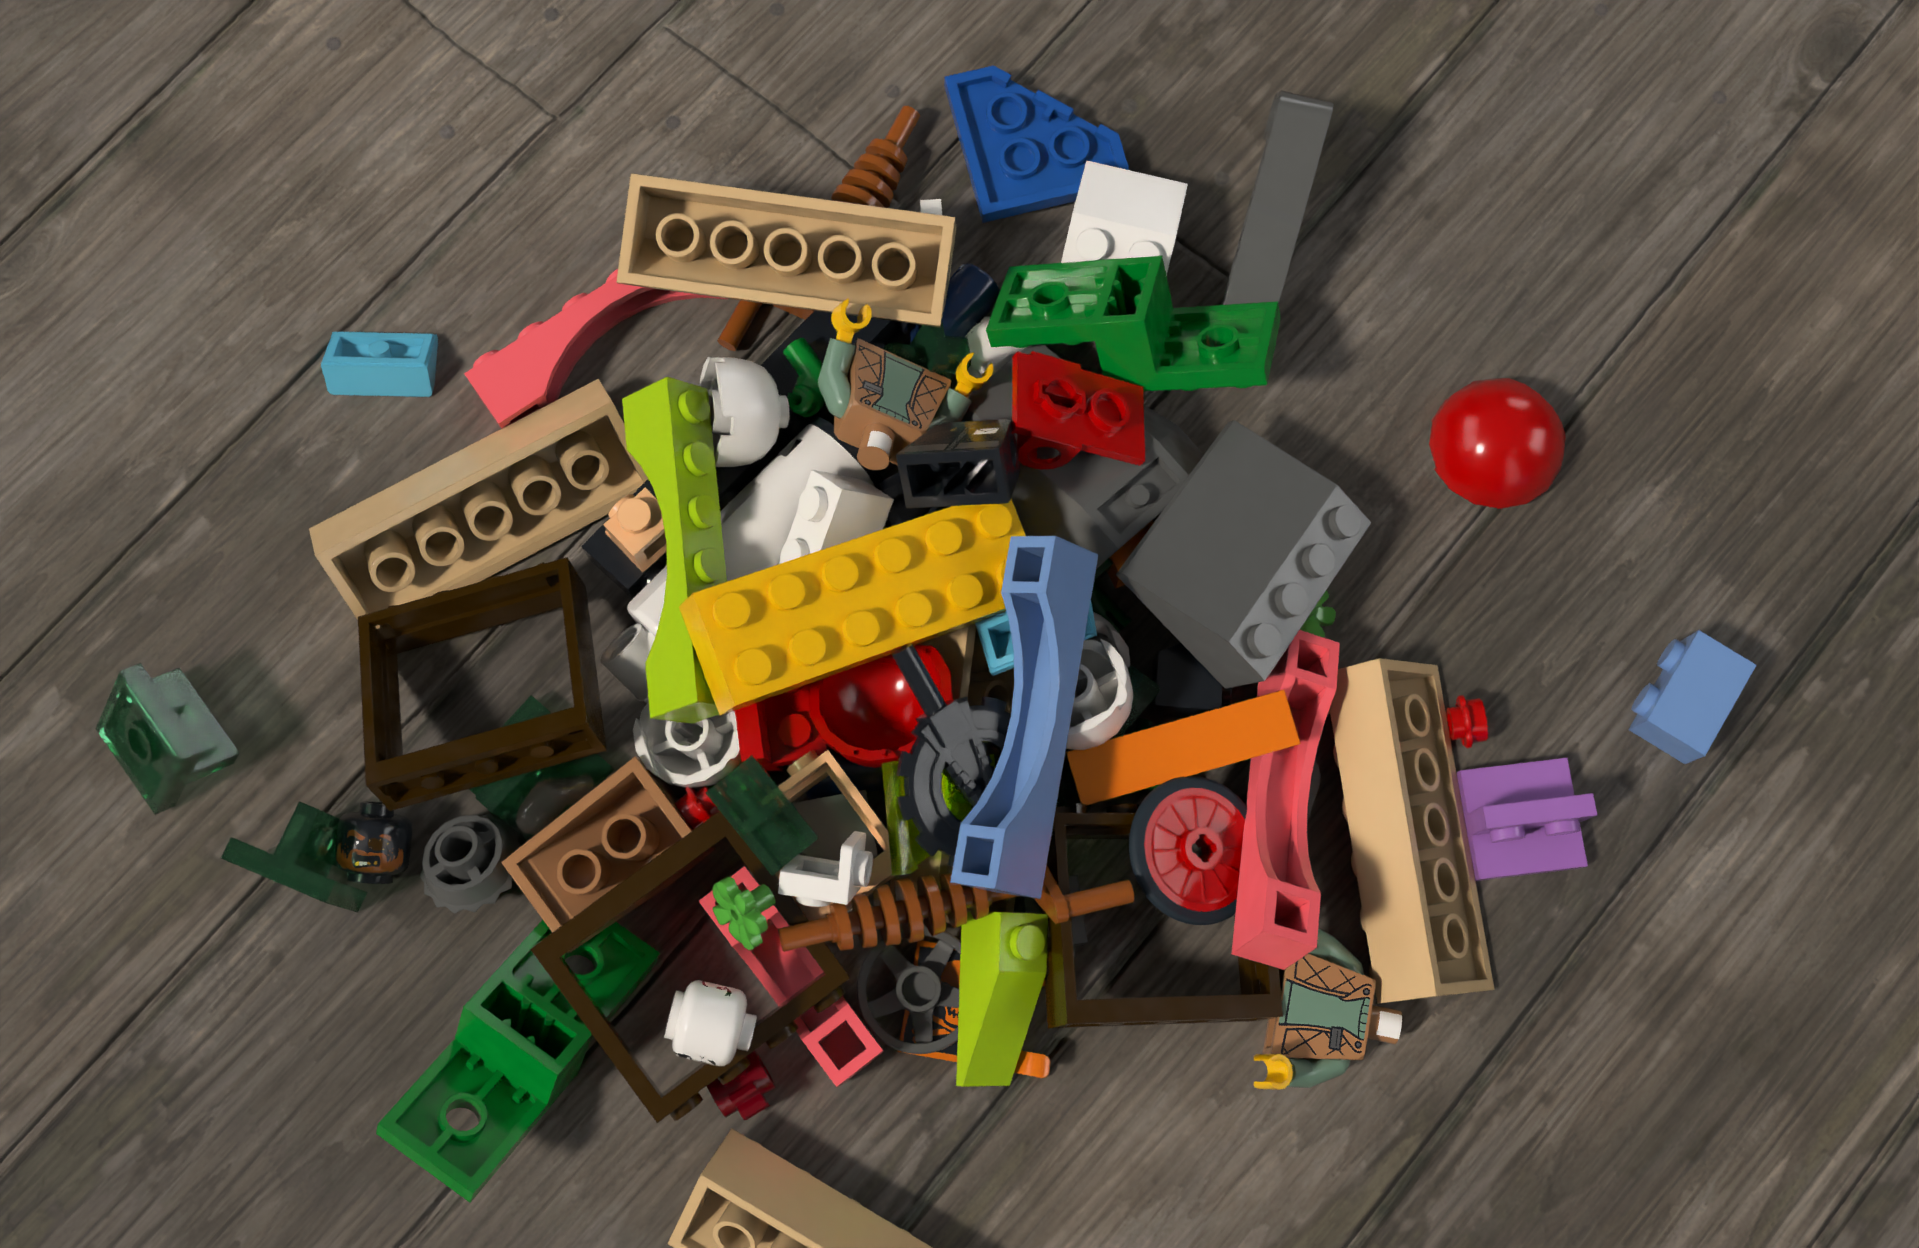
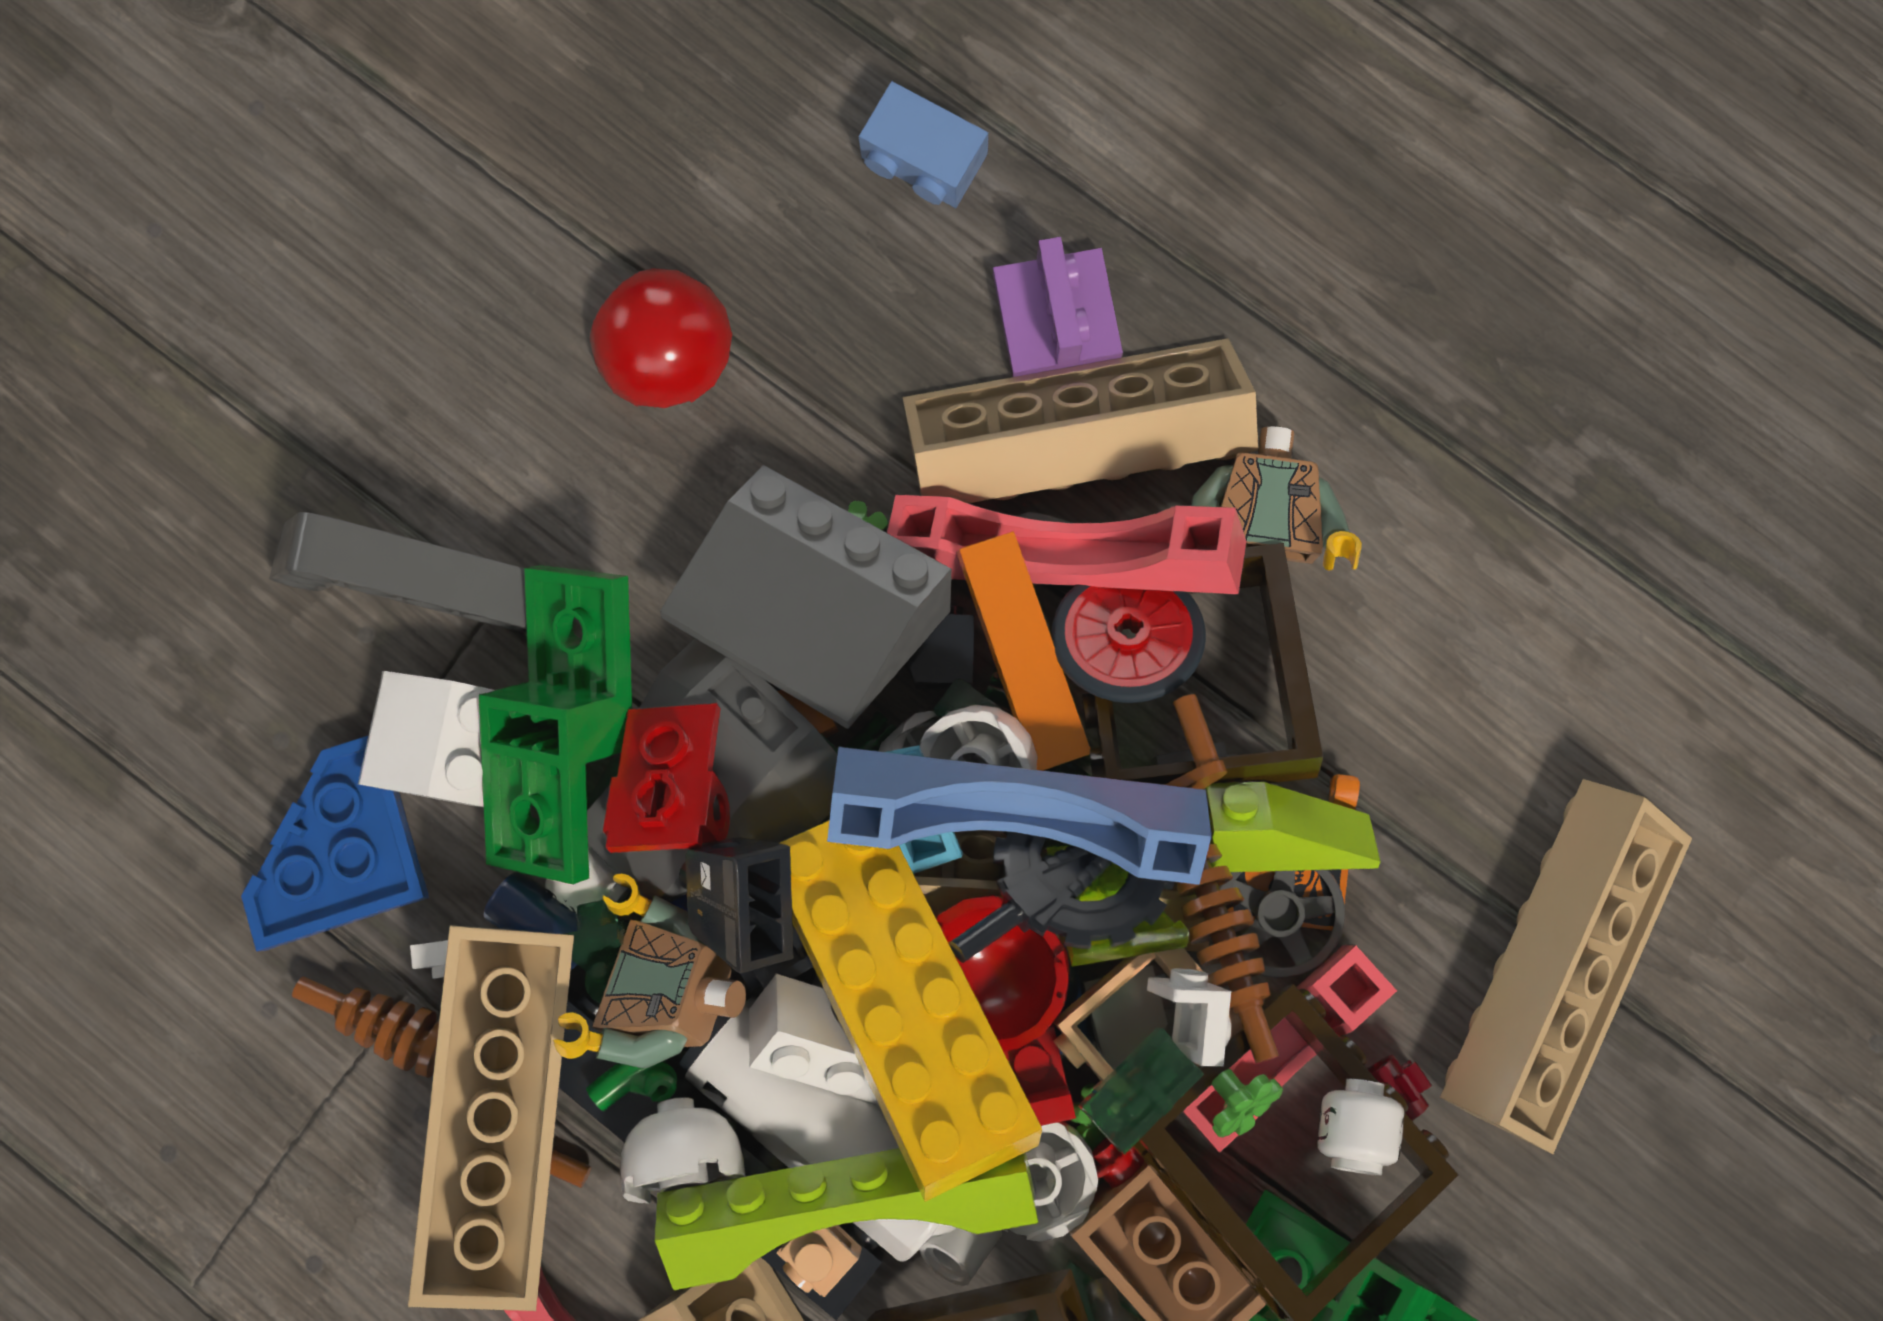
camera: 85 degrees left, 5 degrees up
(1467, 721) = (962, 365): red plate -> none

